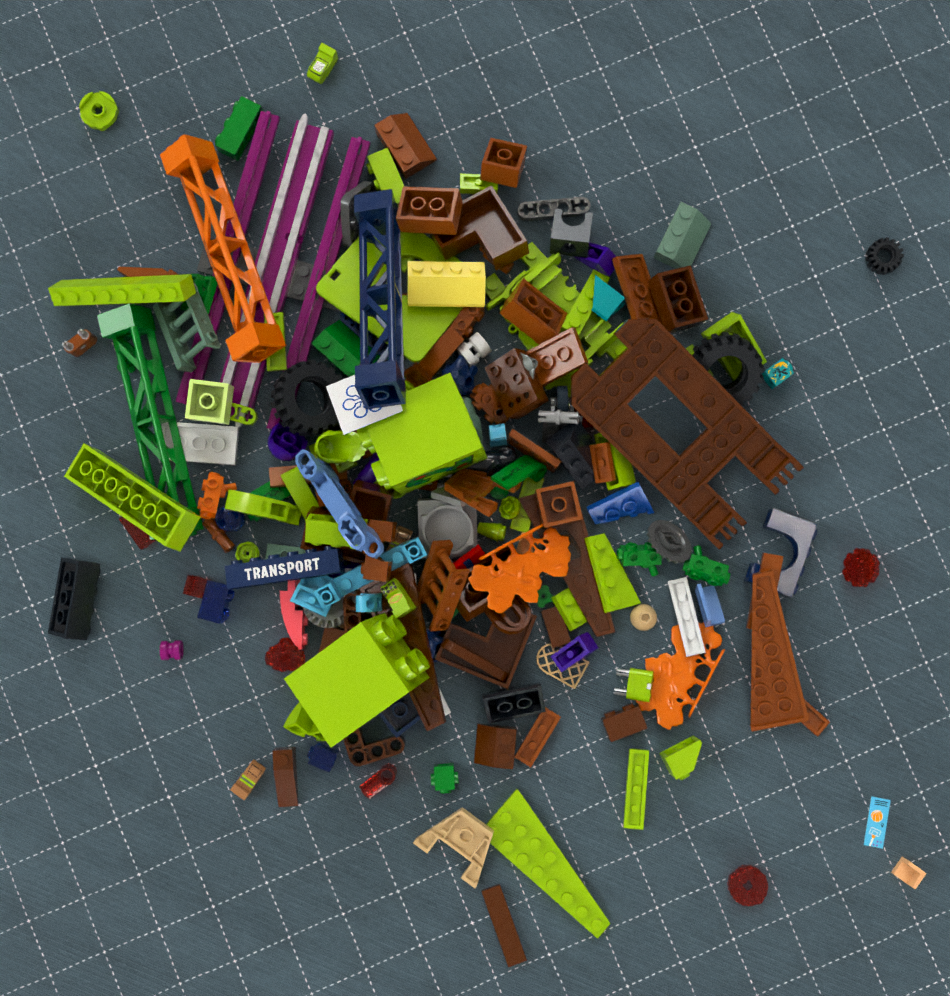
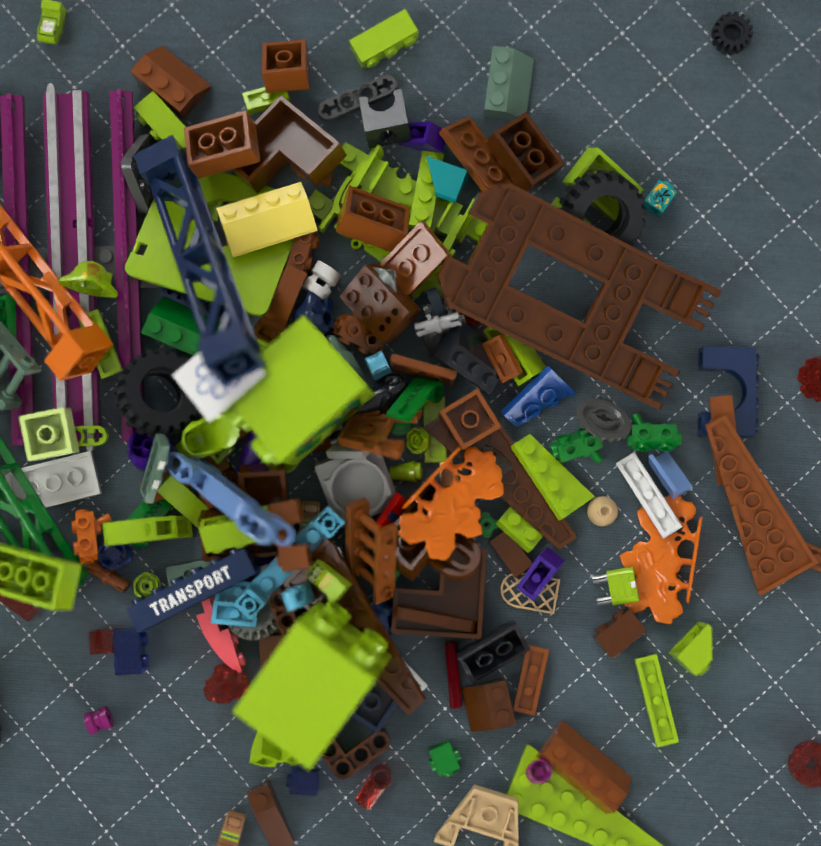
camera: 20 degrees left, 0 degrees up
(285, 286) = (90, 279): none -> lime hat
(285, 459) = (153, 474): none -> sand green plate
(474, 711) = (453, 675): none -> dark red axle
(521, 816) = (542, 771): none -> magenta wheel
(558, 825) = (585, 768): none -> dark orange slope
(592, 167) = (384, 39): none -> lime brick

